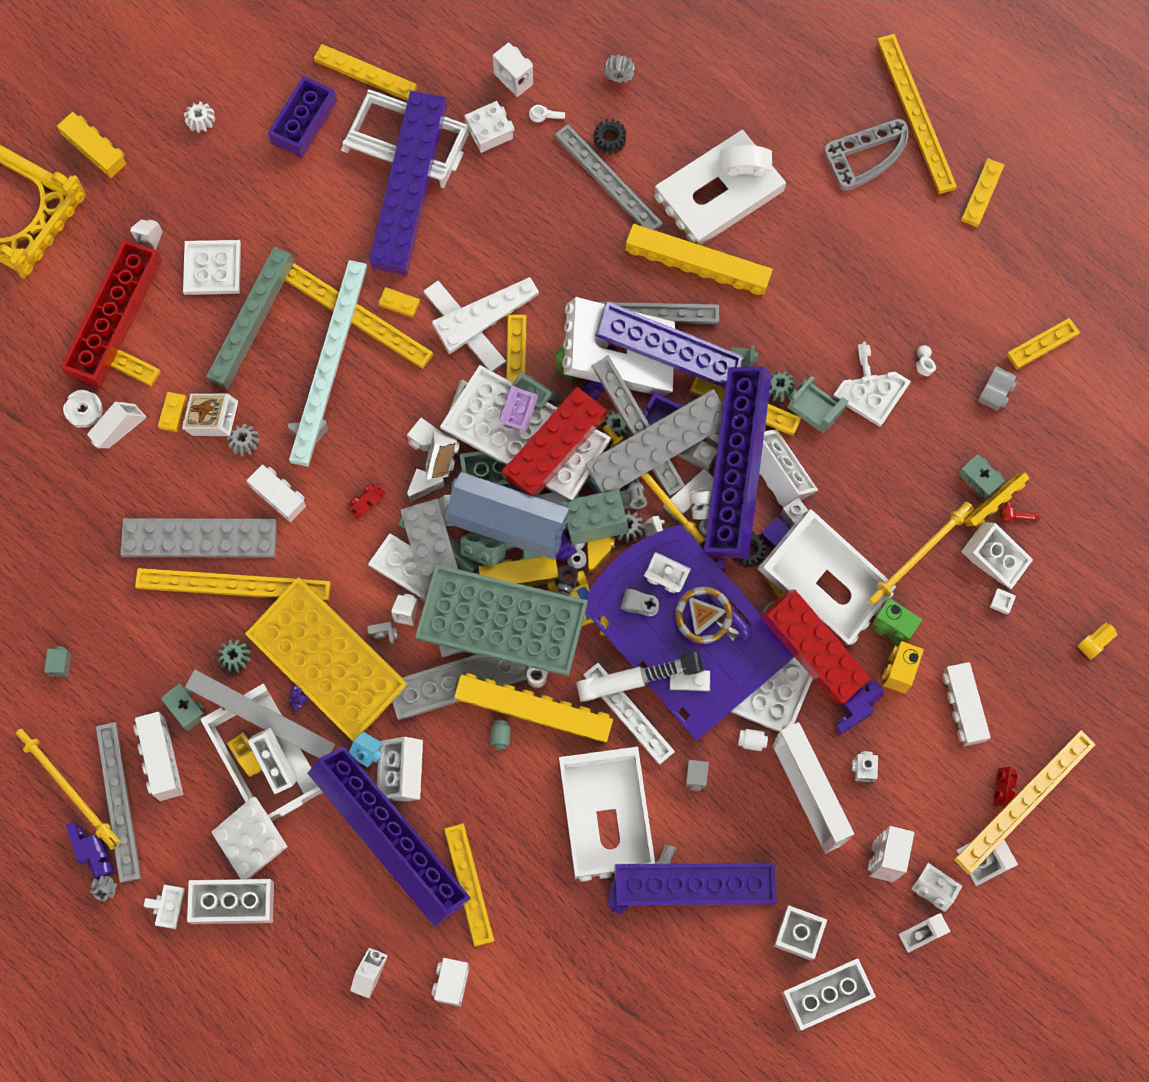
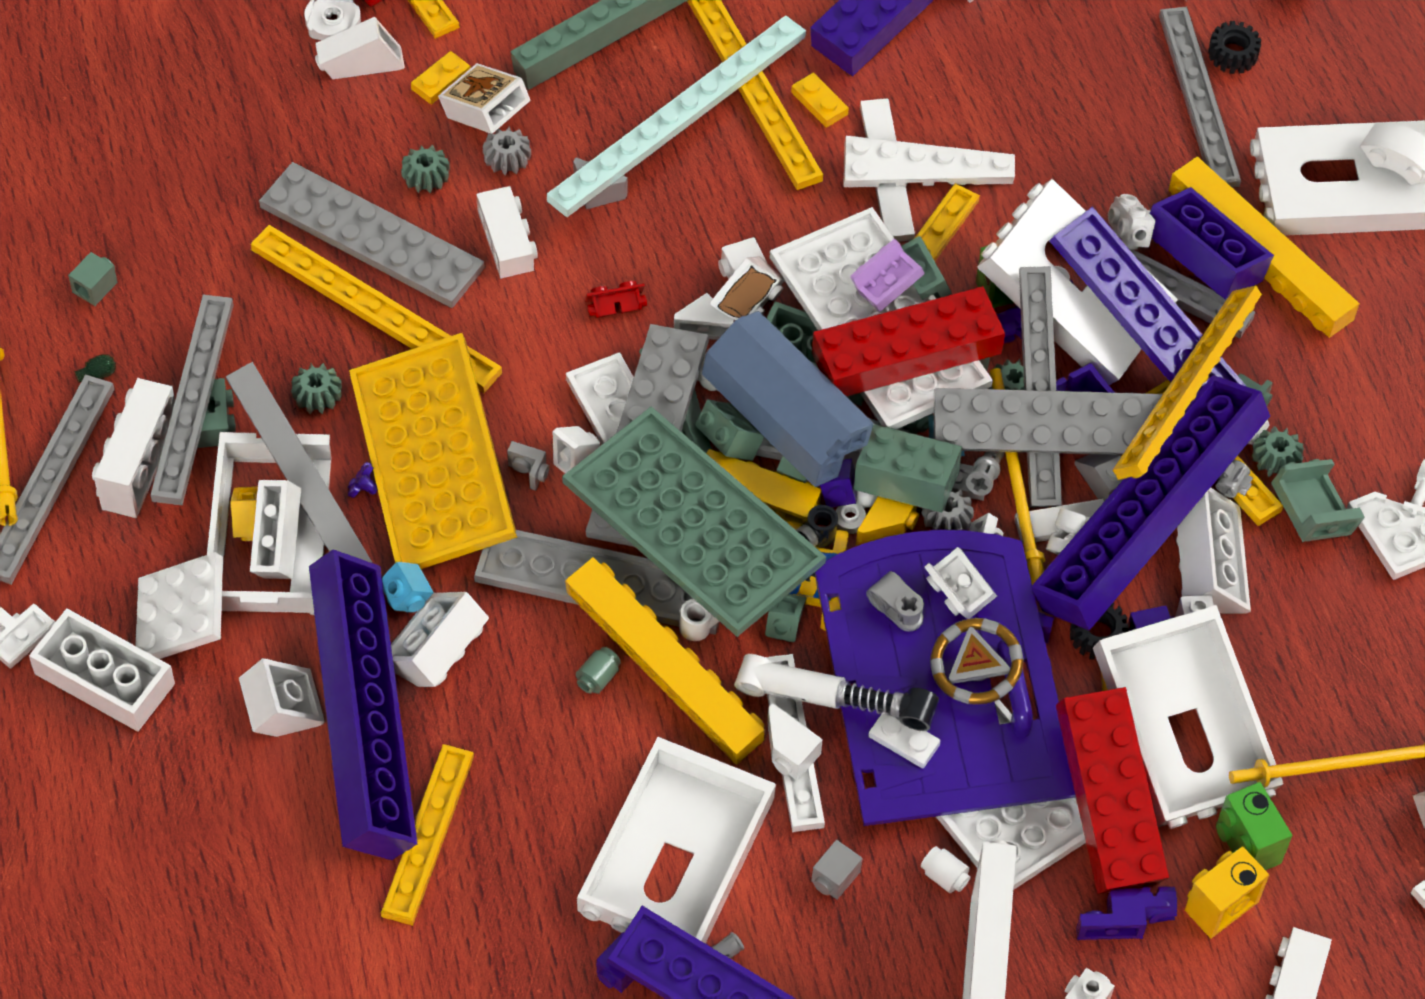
camera: 30 degrees right, 15 degrees down
(98, 717) = (98, 367): none -> clear green cylinder
(172, 709) = (192, 400): none -> light grey plate
(206, 472) = (425, 169): none -> sand green gear
(339, 856) = (280, 698): none -> white slope
(368, 973) = (216, 861): white slope -> none
(451, 982) = (317, 932): white brick -> none
(583, 645) = (785, 618): none -> sand green bracket
(622, 286) = (1128, 219): none -> white brick
(631, 719) = (791, 743): none -> white slope
(671, 277) = (1209, 243): none -> dark purple brick
(717, 380) = (1186, 383): none -> yellow plate
(772, 420) = (1234, 480): none -> light grey gear

